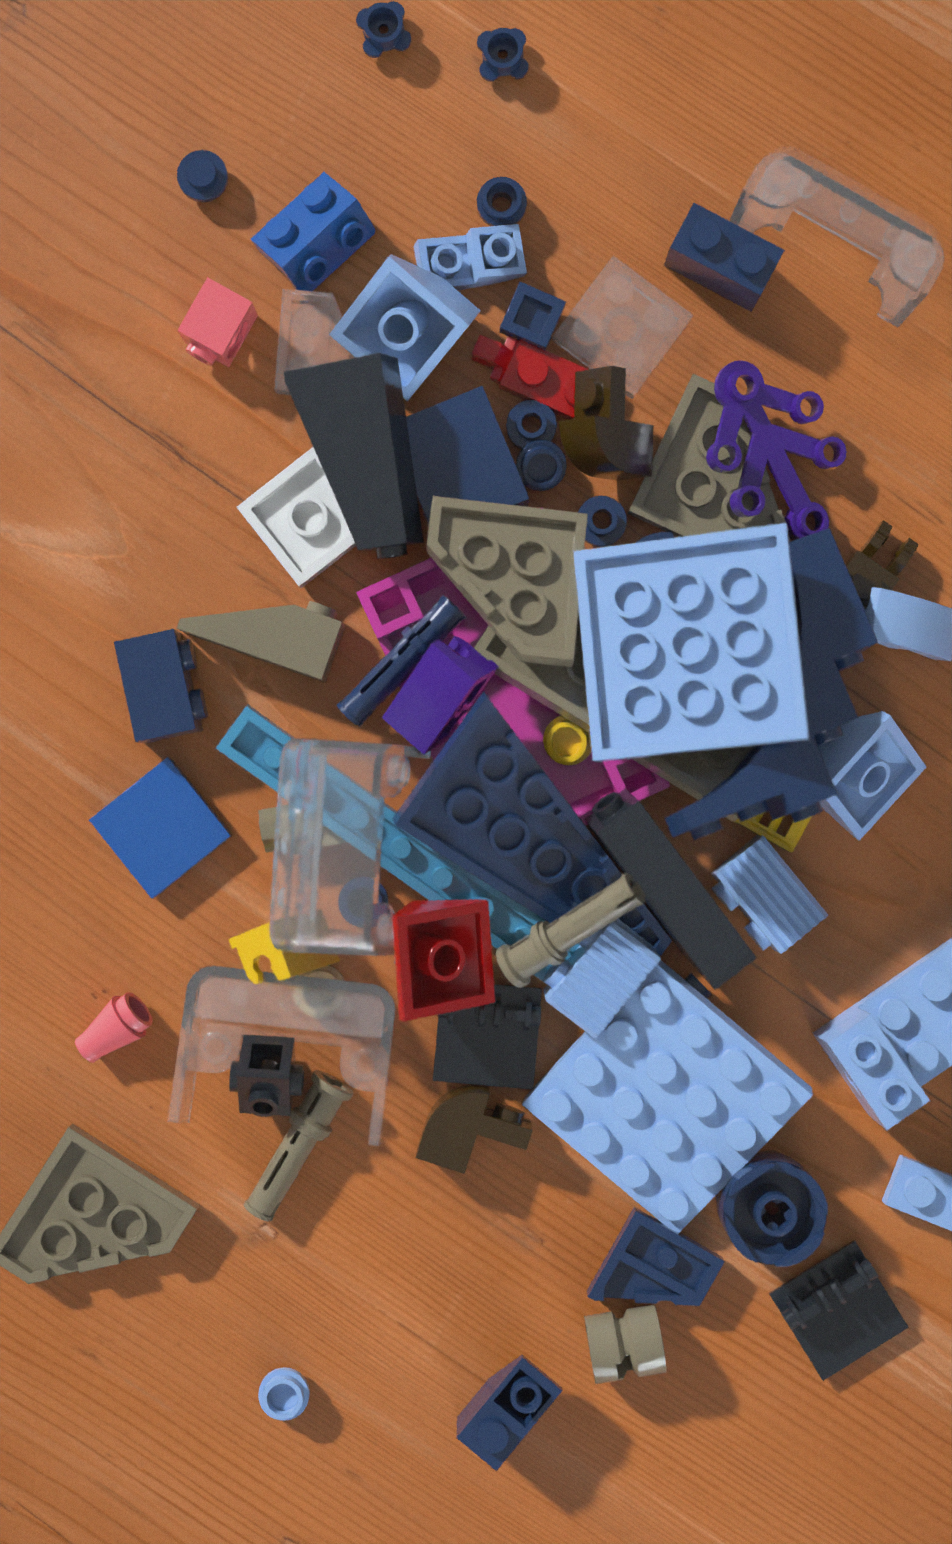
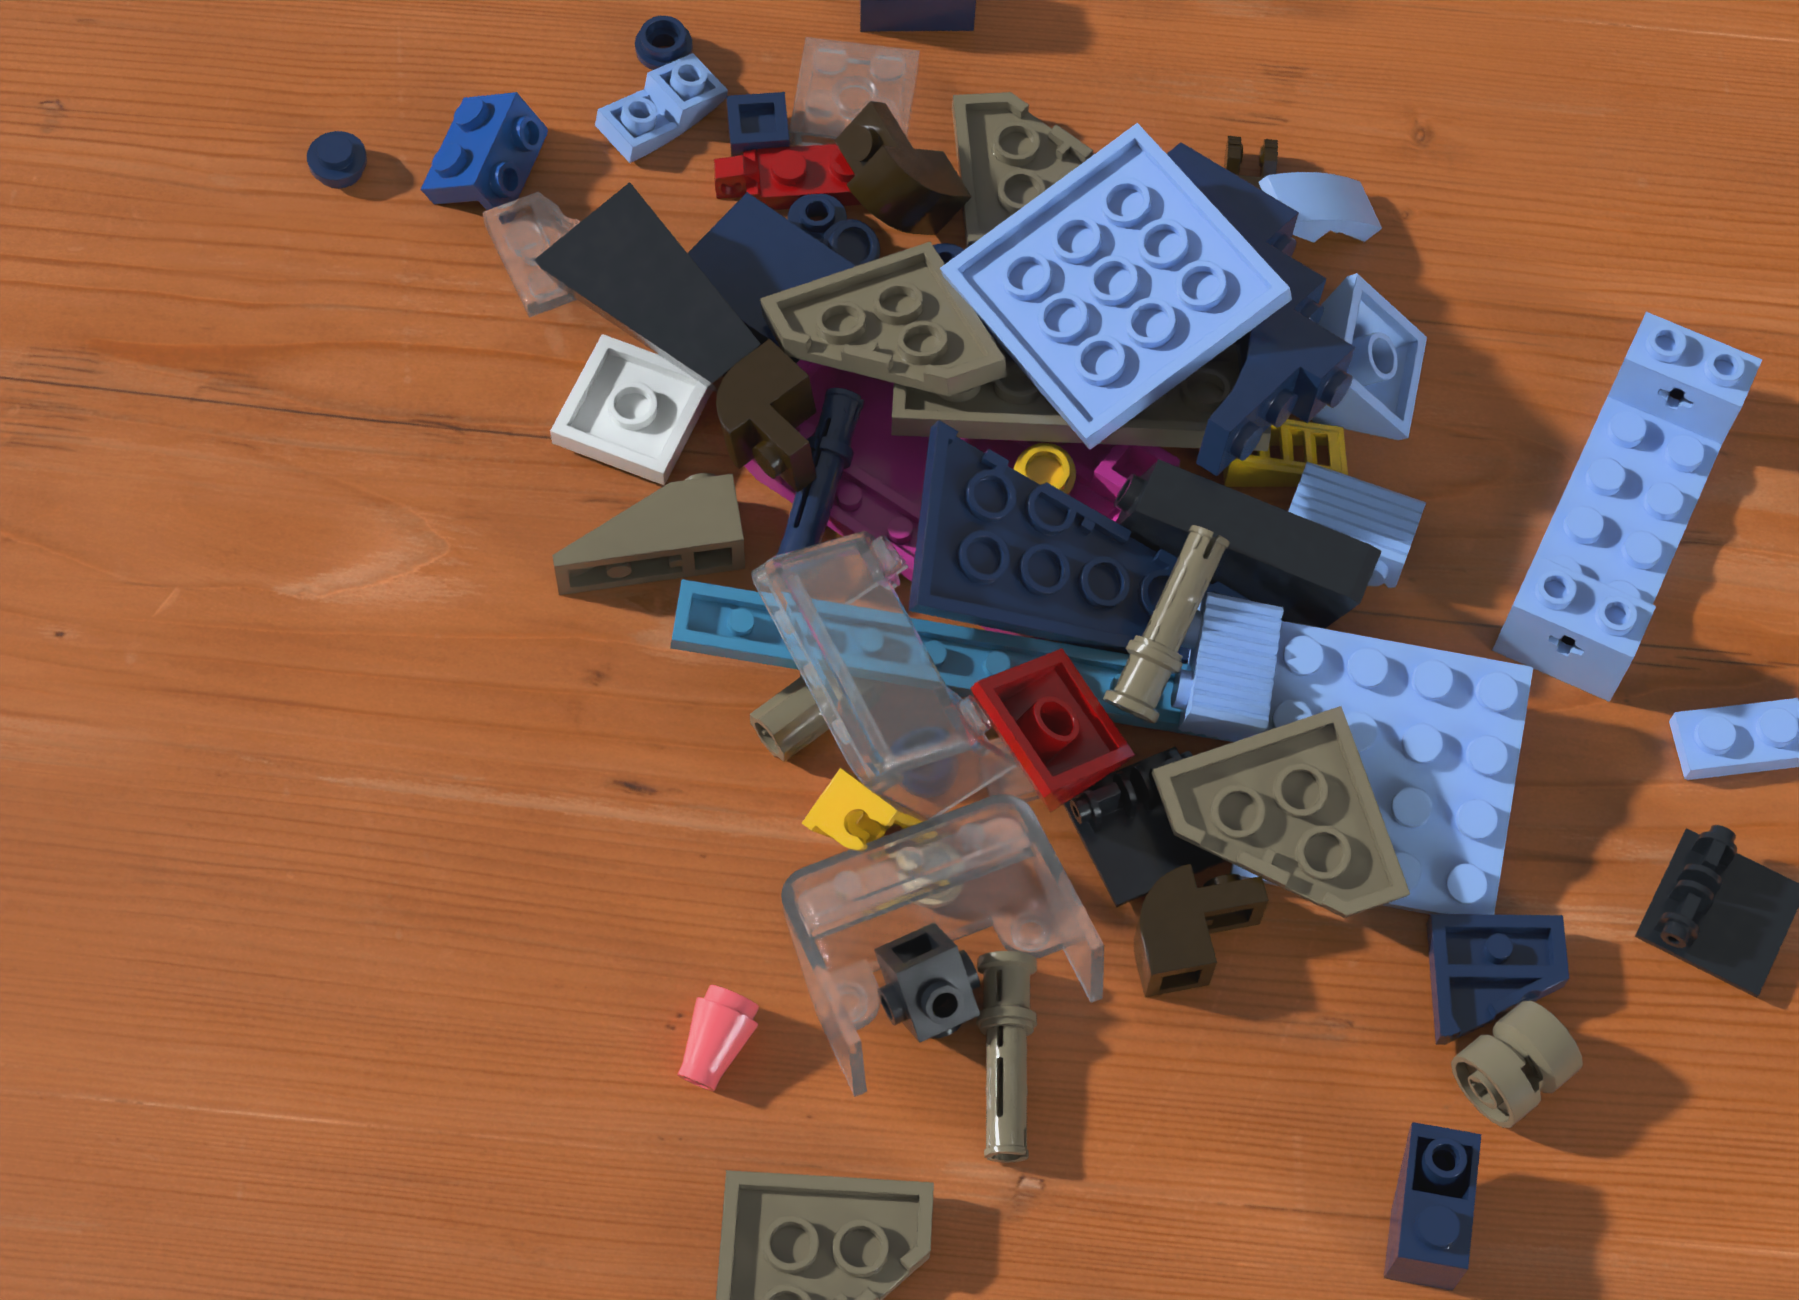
camera: 30 degrees left, 25 degrees down
(160, 685) = (566, 646): dark blue brick -> none
(160, 827) = (647, 799): blue tile -> none
(217, 324) = (430, 275): coral brick -> none
(380, 586) = (759, 410): none -> dark brown brick
(406, 317) = (628, 149): light blue slope -> none
(439, 693) = (881, 474): dark purple hinge -> none
(575, 1100) = (1289, 811): none -> dark tan plate
(769, 445) = (1016, 84): dark purple plant -> none
(793, 1230) = (1574, 826): dark blue brick -> none

